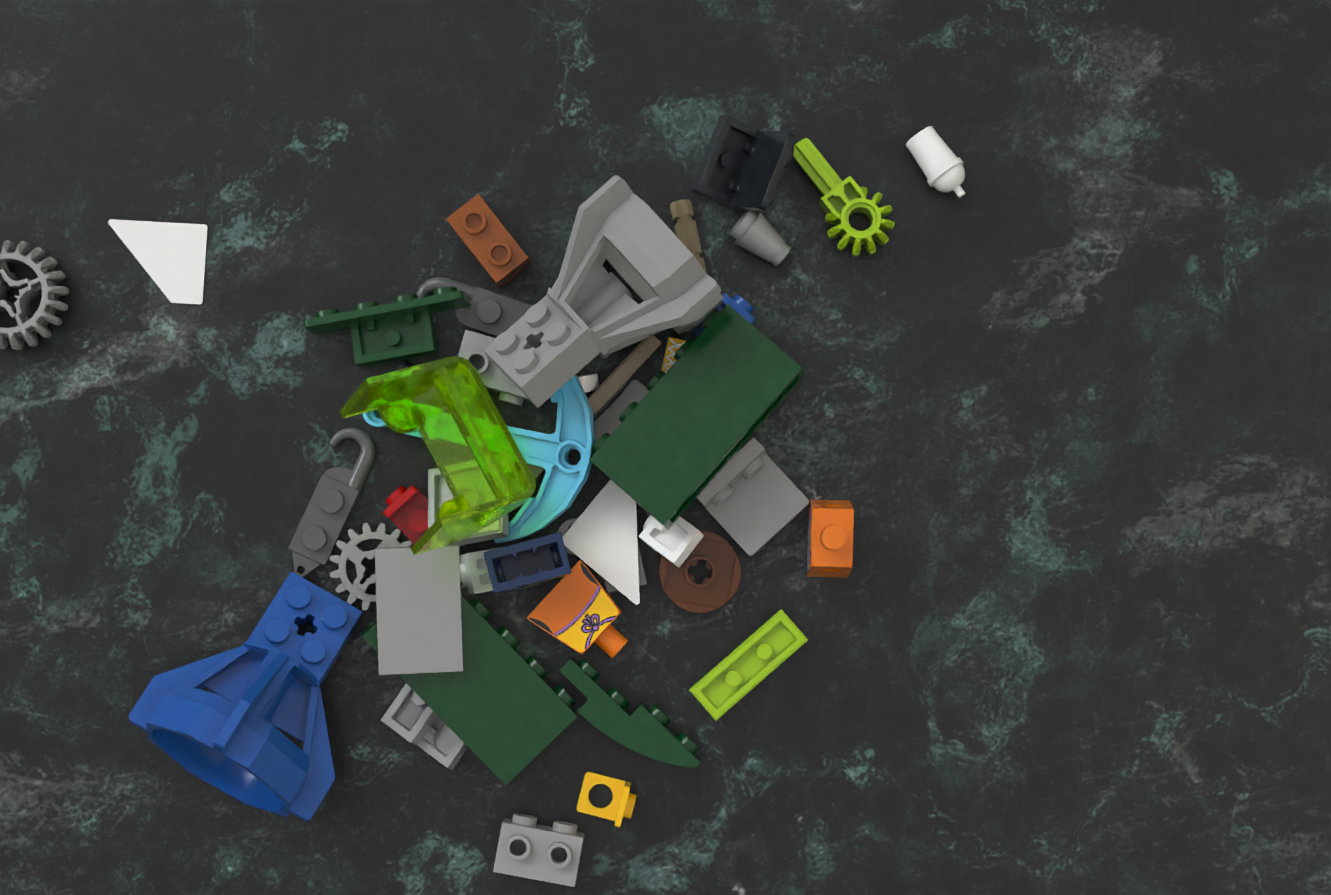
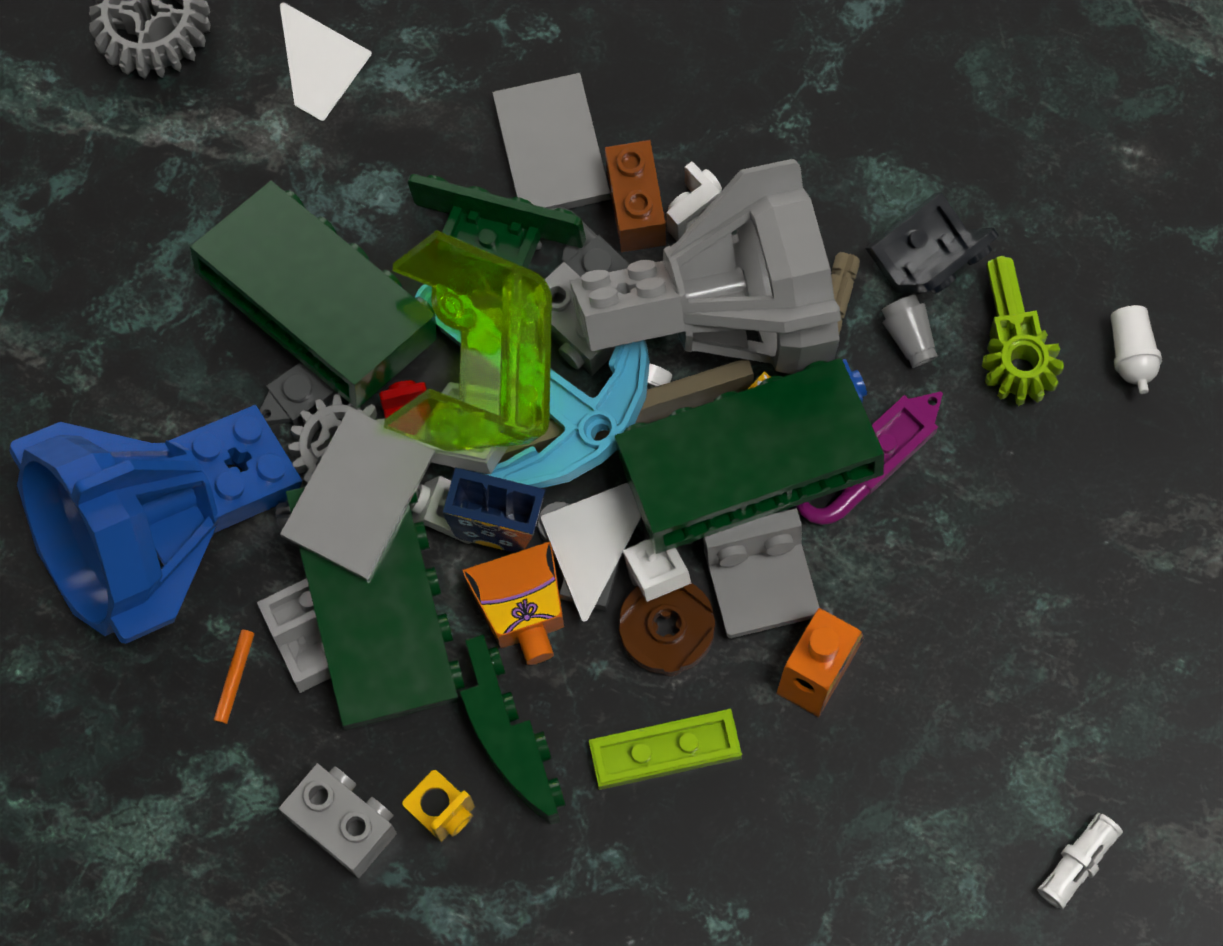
camera: 30 degrees right, 15 degrees down
(284, 457) = (315, 293): none -> dark green brick
(395, 783) = (234, 676): none -> orange piece
(396, 229) = (552, 143): none -> light grey tile
(537, 229) = (689, 206): none -> white bracket
(793, 335) = (901, 434): none -> magenta plate
(1093, 584) = (1080, 861): none -> white pin

